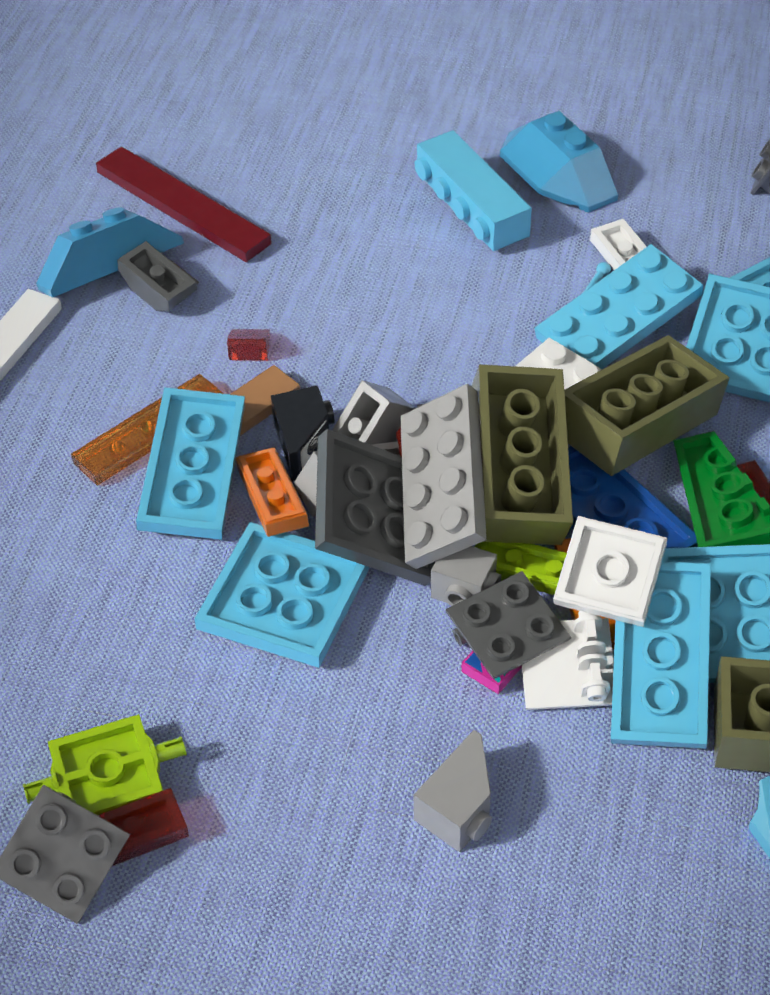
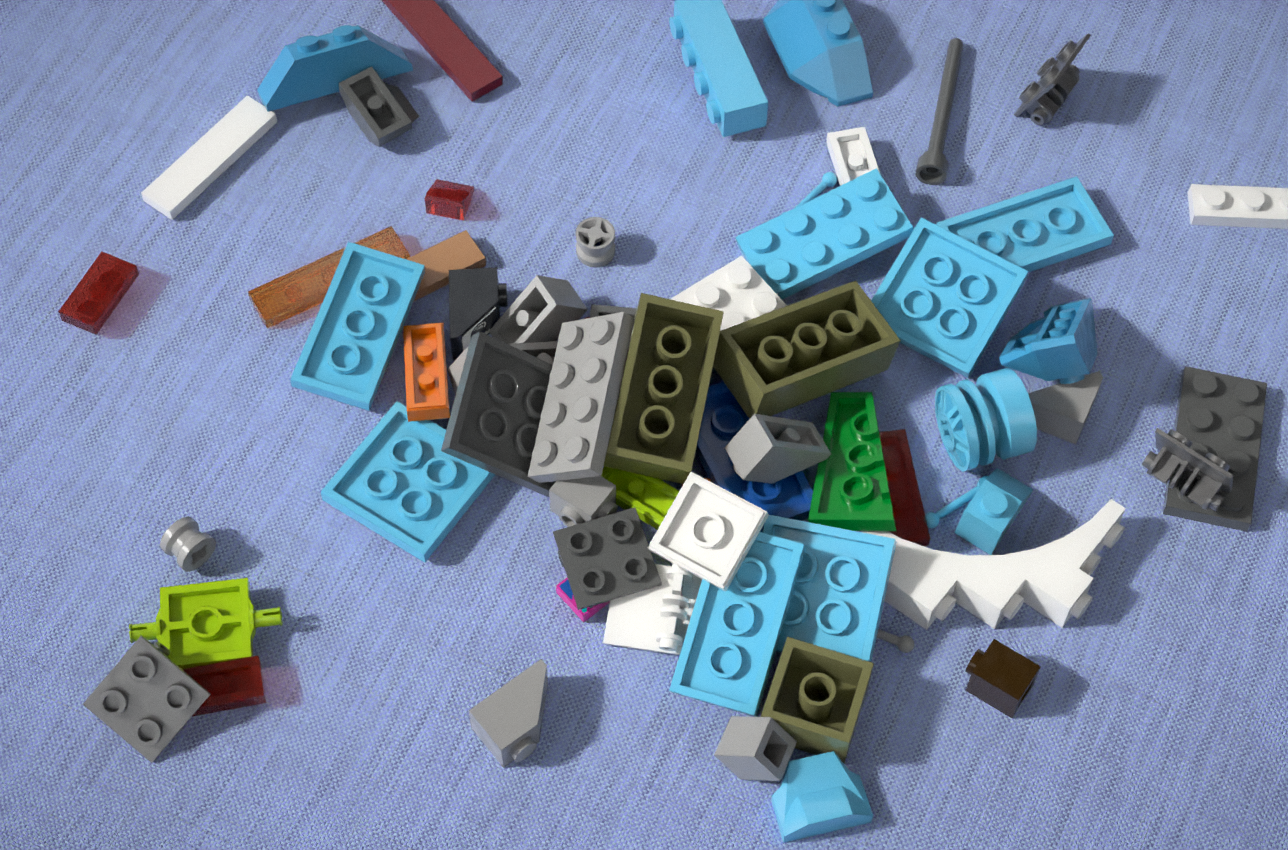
camera: 10 degrees right, 10 degrees up
(66, 694) = (187, 544): none -> light grey wheel
(402, 353) = (588, 234): none -> light grey wheel
(642, 491) = (775, 448): none -> light grey slope
(695, 240) = (933, 165): none -> dark grey piece
(721, 774) = (755, 748): none -> light grey brick

